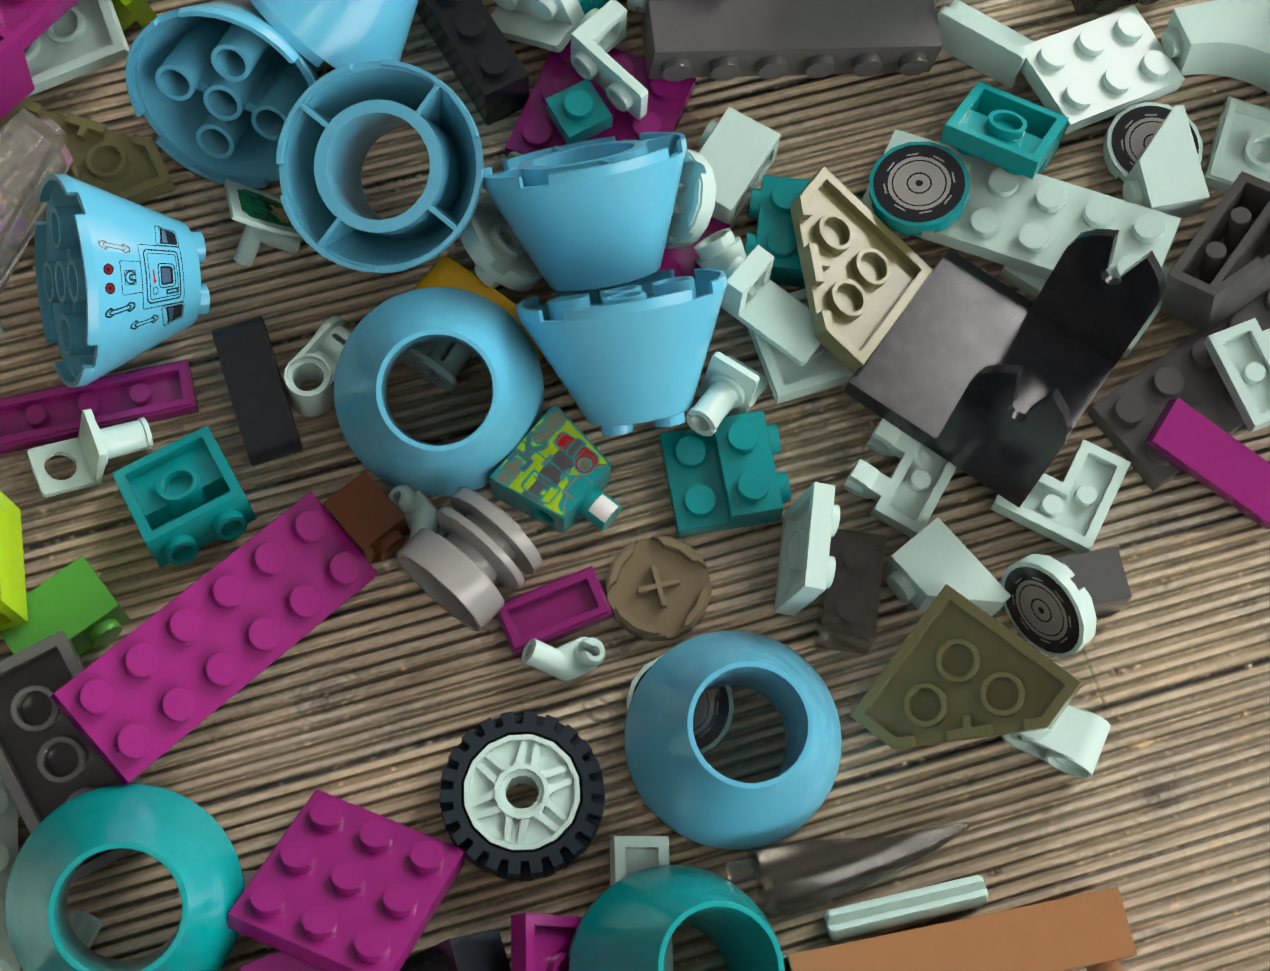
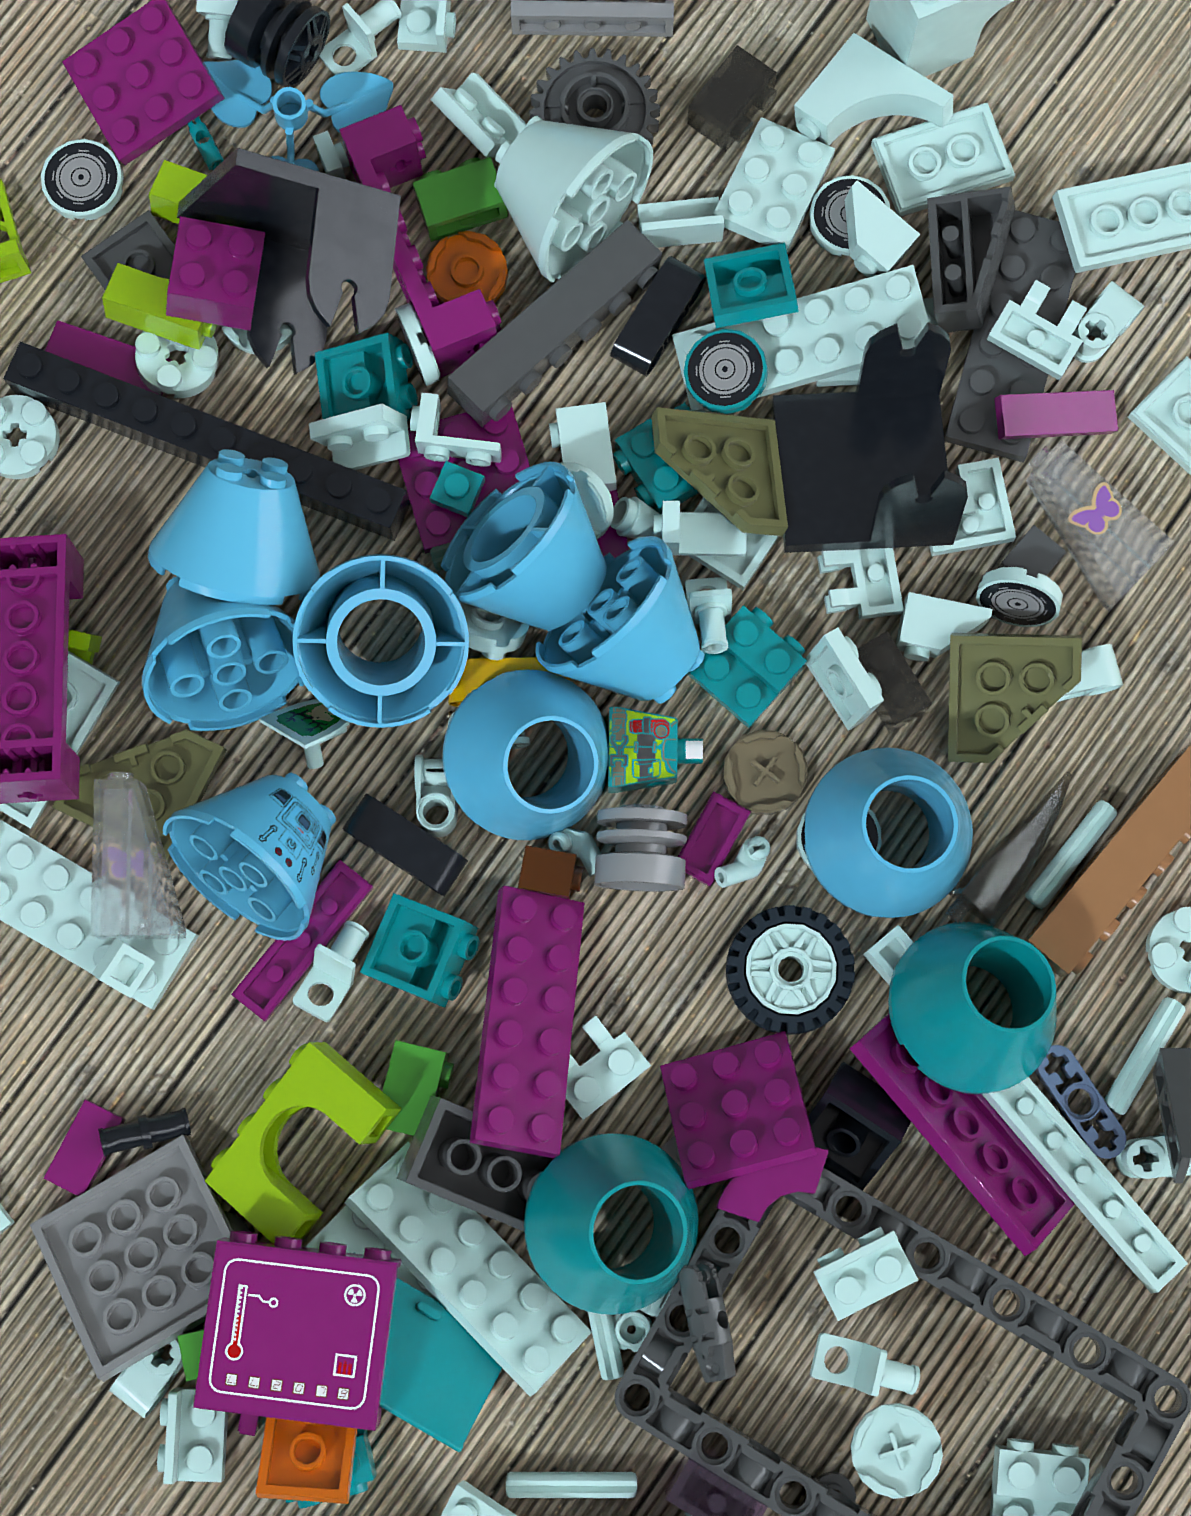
camera: 30 degrees left, 10 degrees up
(256, 754) = (605, 1071): none -> light aqua plate
(892, 101) = (658, 316): none -> black beam
(1186, 601) = (1096, 523): none -> clear slope

